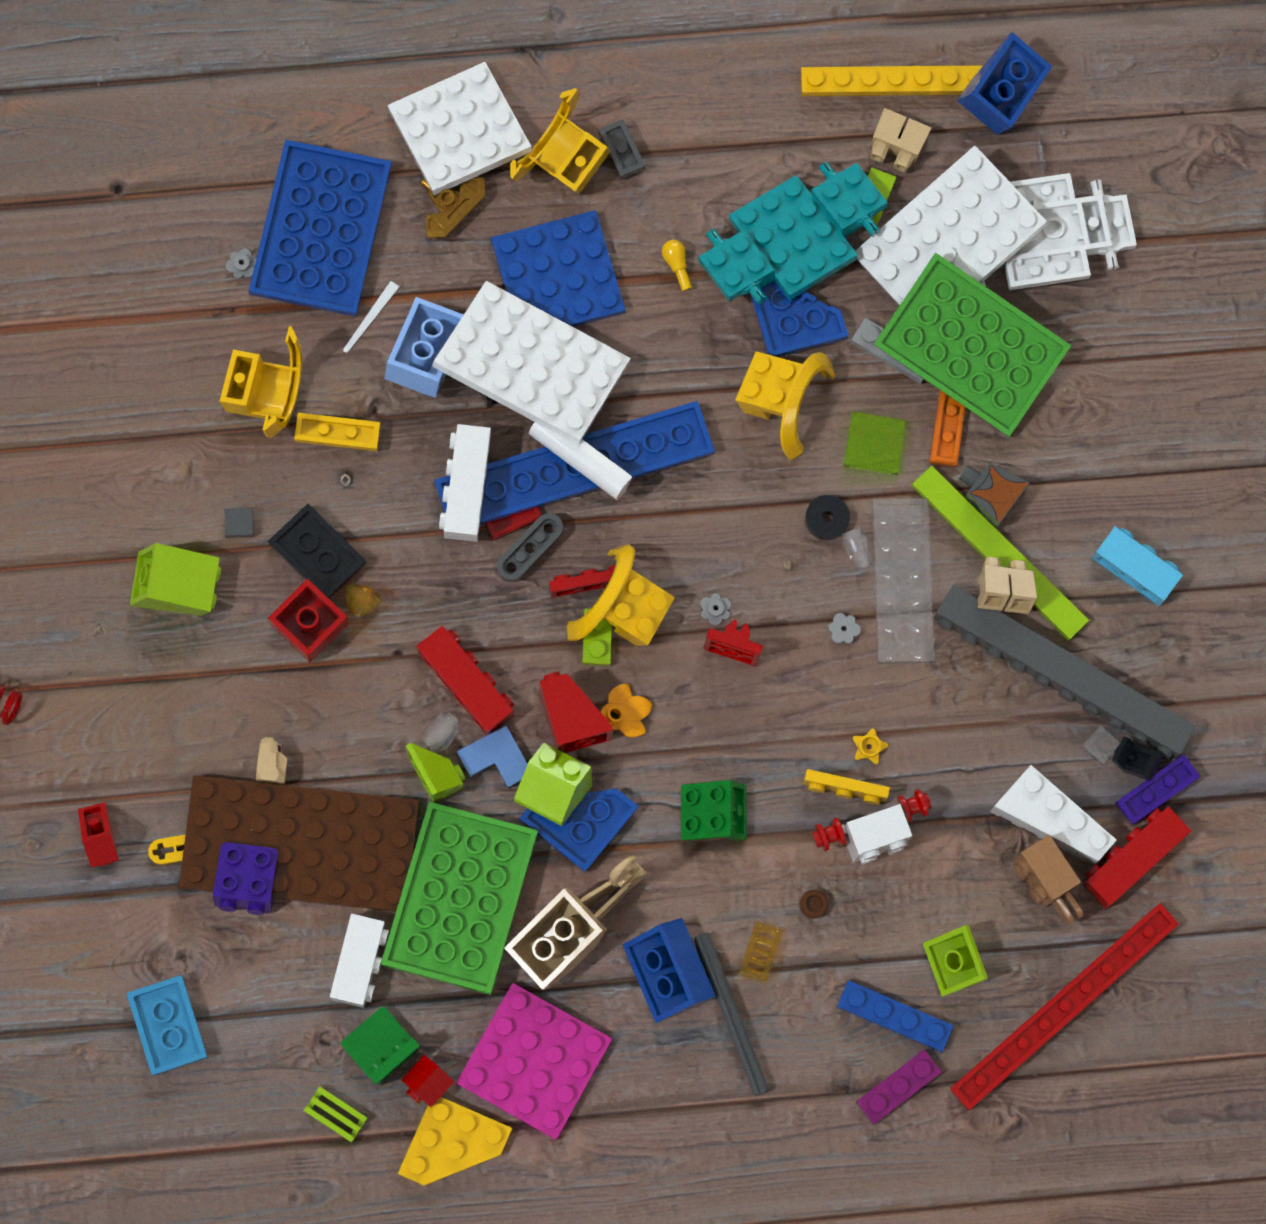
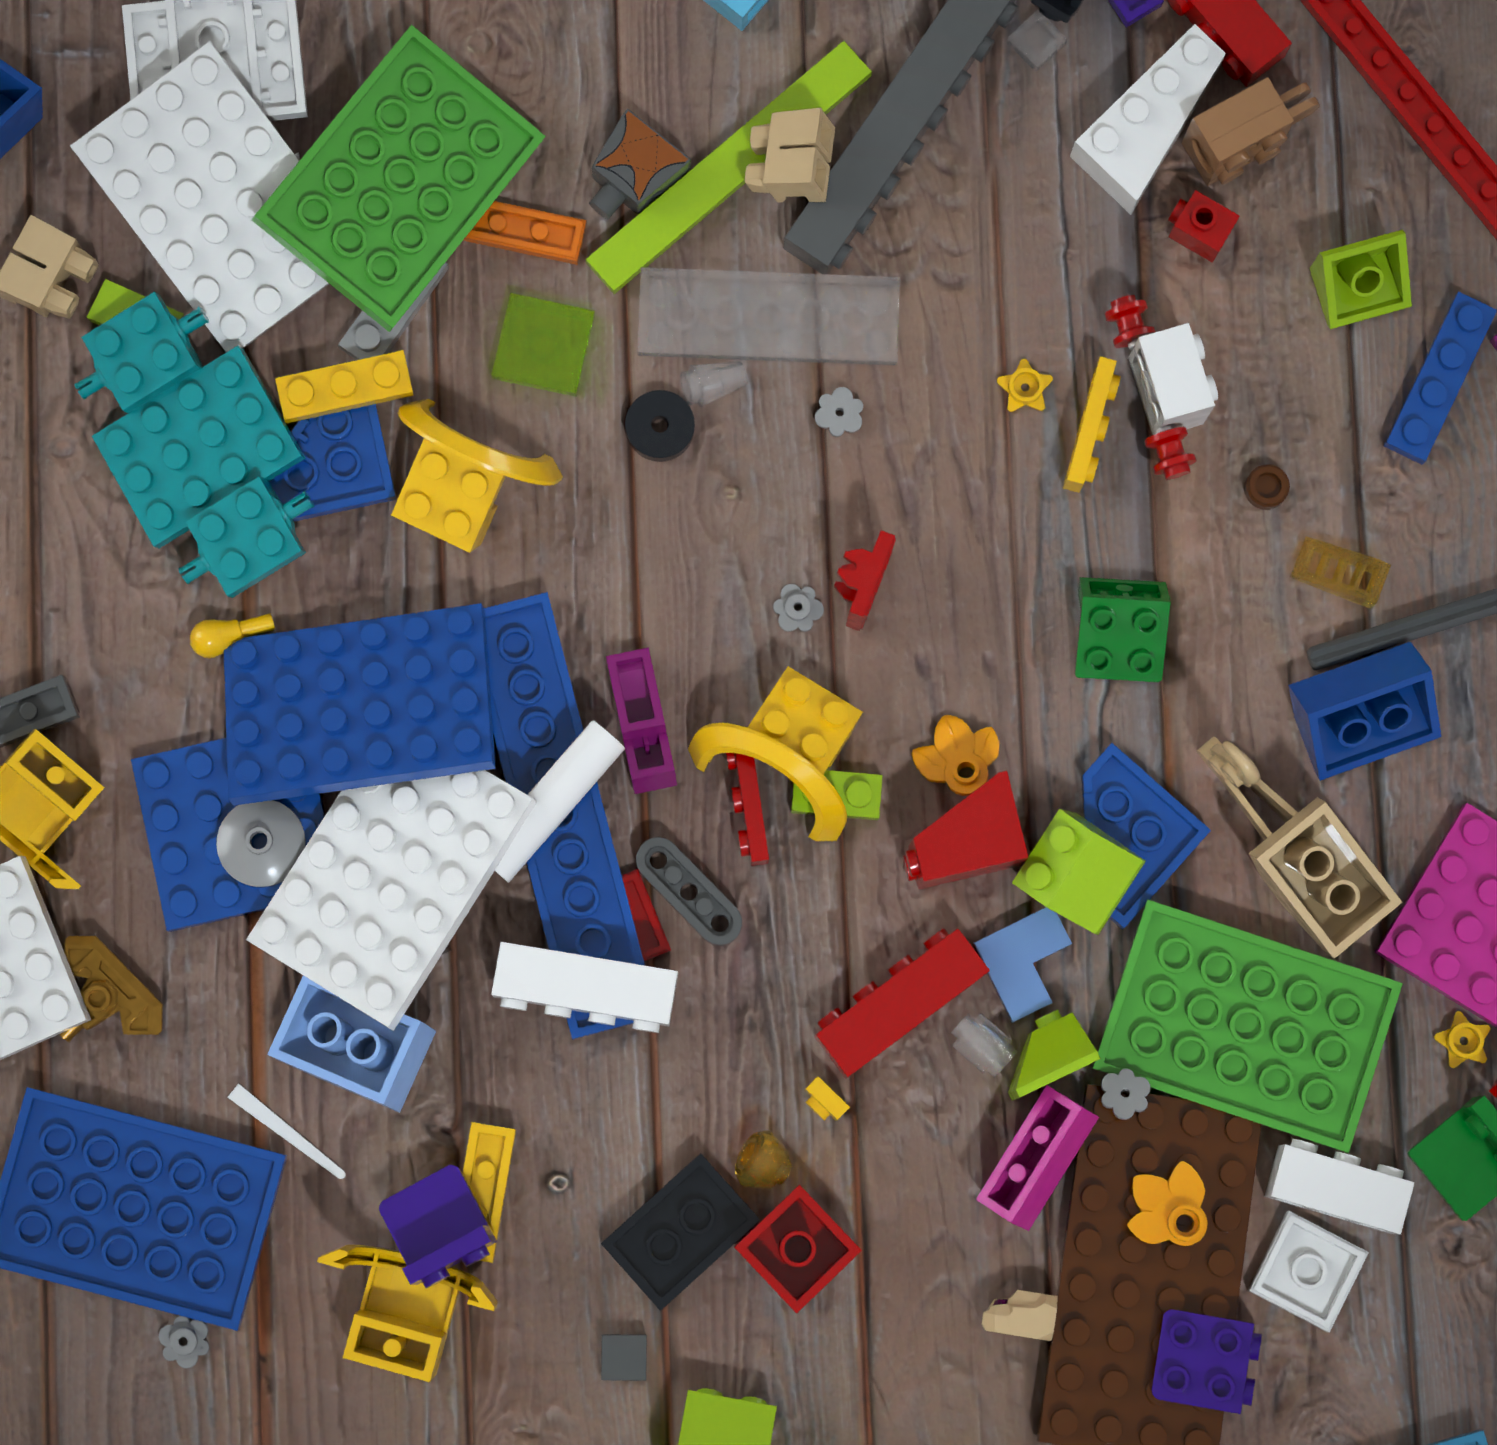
camera: 85 degrees left, 5 degrees up
(305, 945) = (1308, 1271): none -> white tile
(314, 402) = (437, 1226): none -> dark purple bracket
(344, 846) = (1164, 1202): none -> light orange plate
(370, 765) = (1037, 1158): none -> dark pink brick
(402, 636) = (825, 1100): none -> yellow plate
(420, 820) = (1135, 1087): none -> light grey plant
(450, 1038) = (1475, 1040): none -> yellow plate
(552, 299) = (265, 865): none -> light grey dish
(635, 338) = (358, 705): none -> blue plate
(636, 513) = (641, 720): none -> magenta slope
(836, 320) = (344, 386): none -> yellow plate
(984, 854) = (1202, 225): none -> red brick

